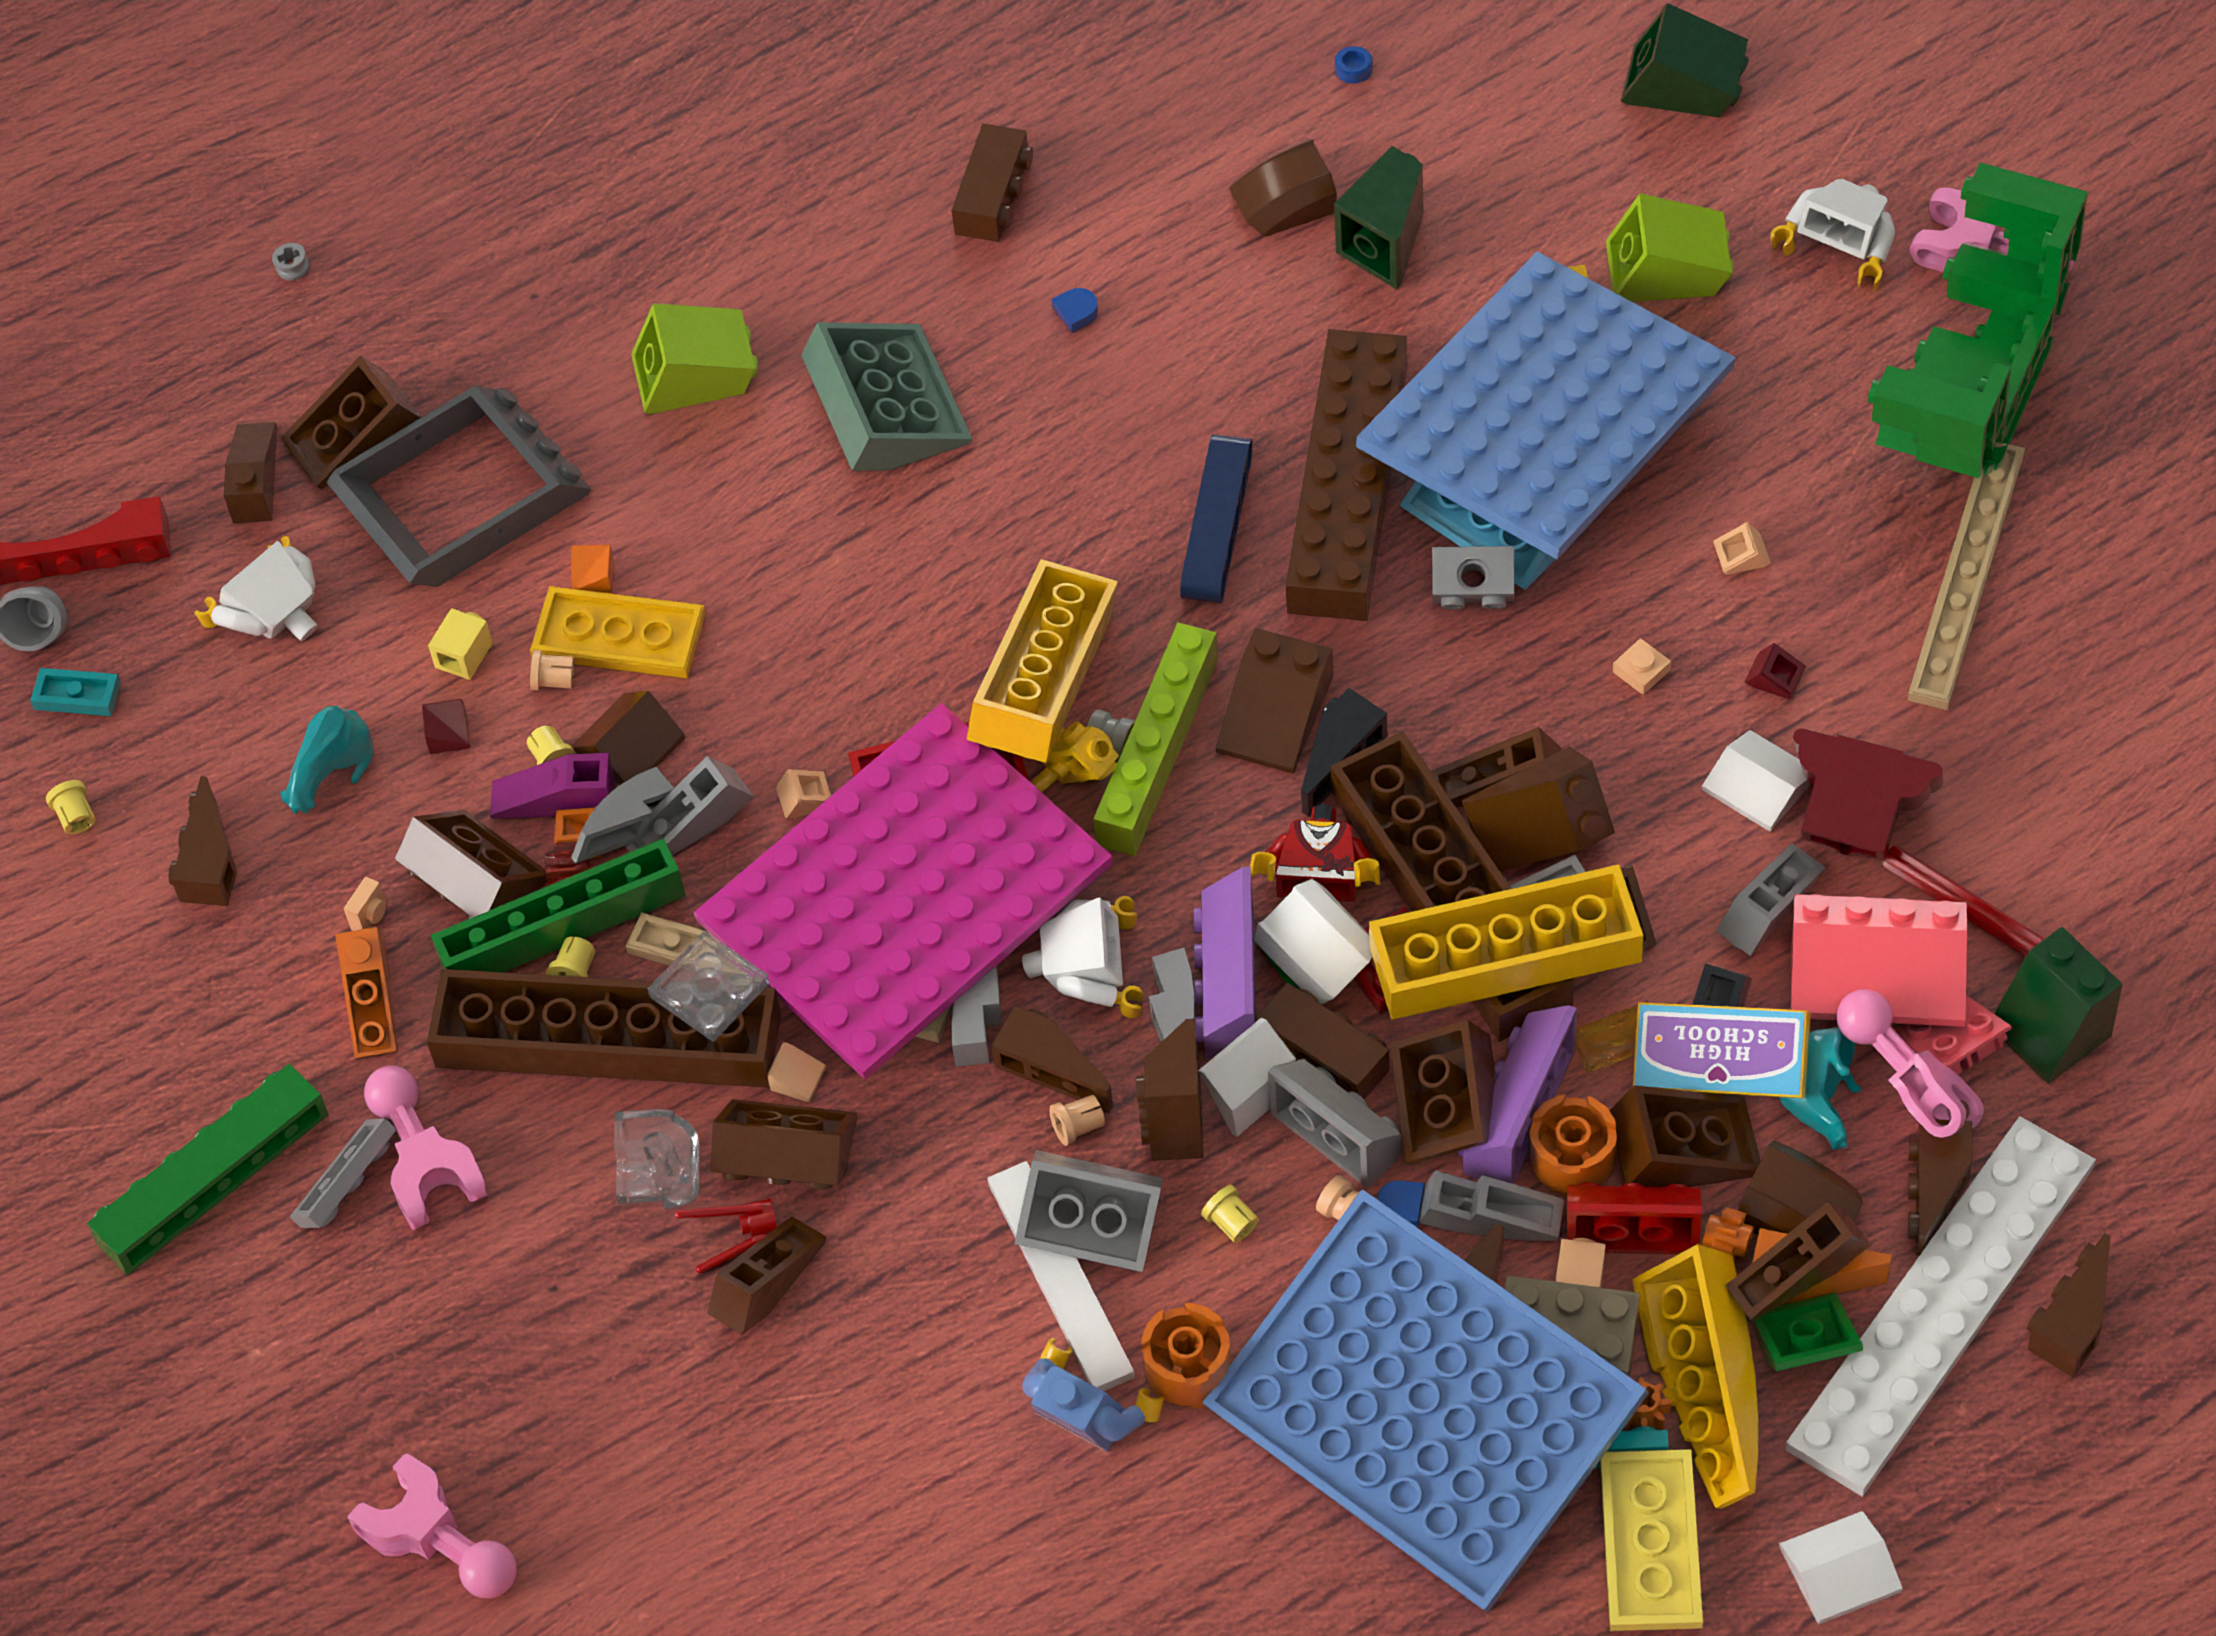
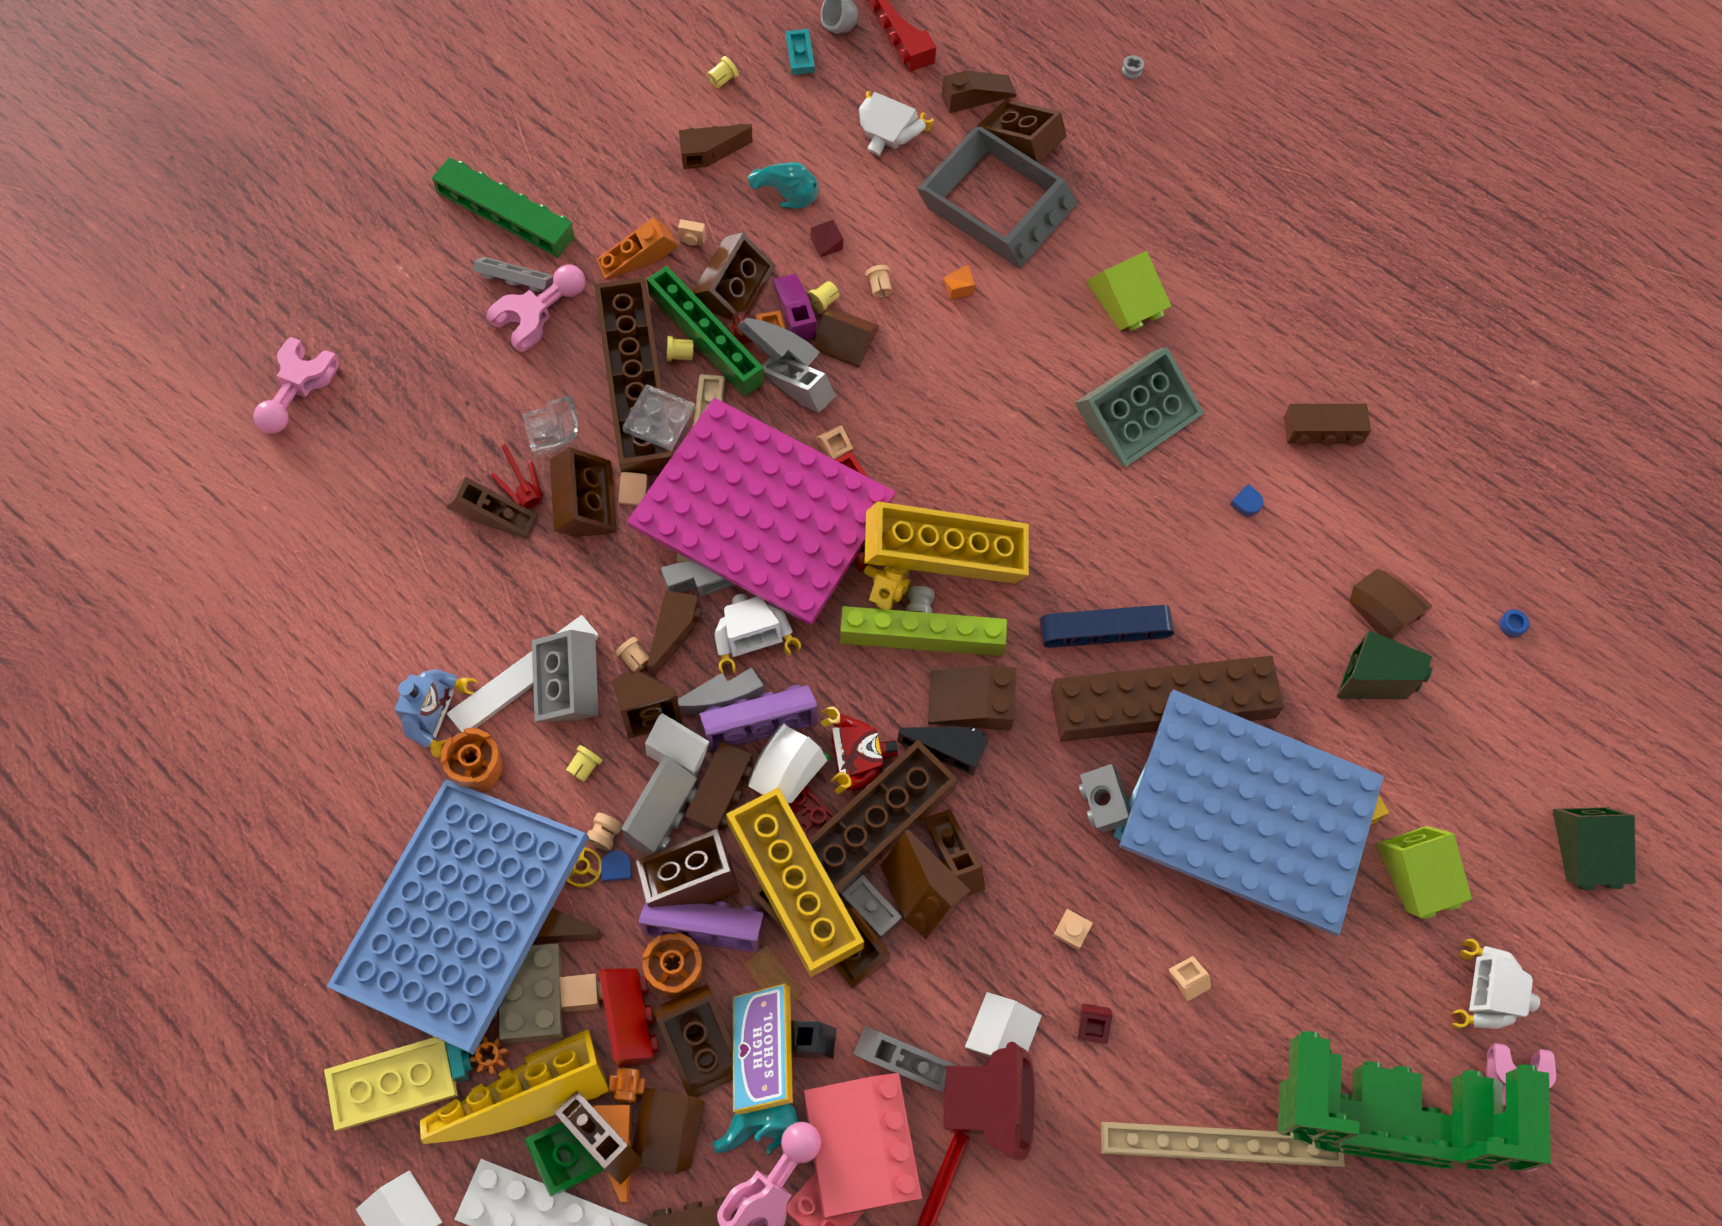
camera: 65 degrees right, 10 degrees up
(460, 643) = (885, 229): light yellow brick -> none
(620, 631) = (921, 310): yellow tile -> none
(1477, 1206) = (619, 924): light grey slope -> none

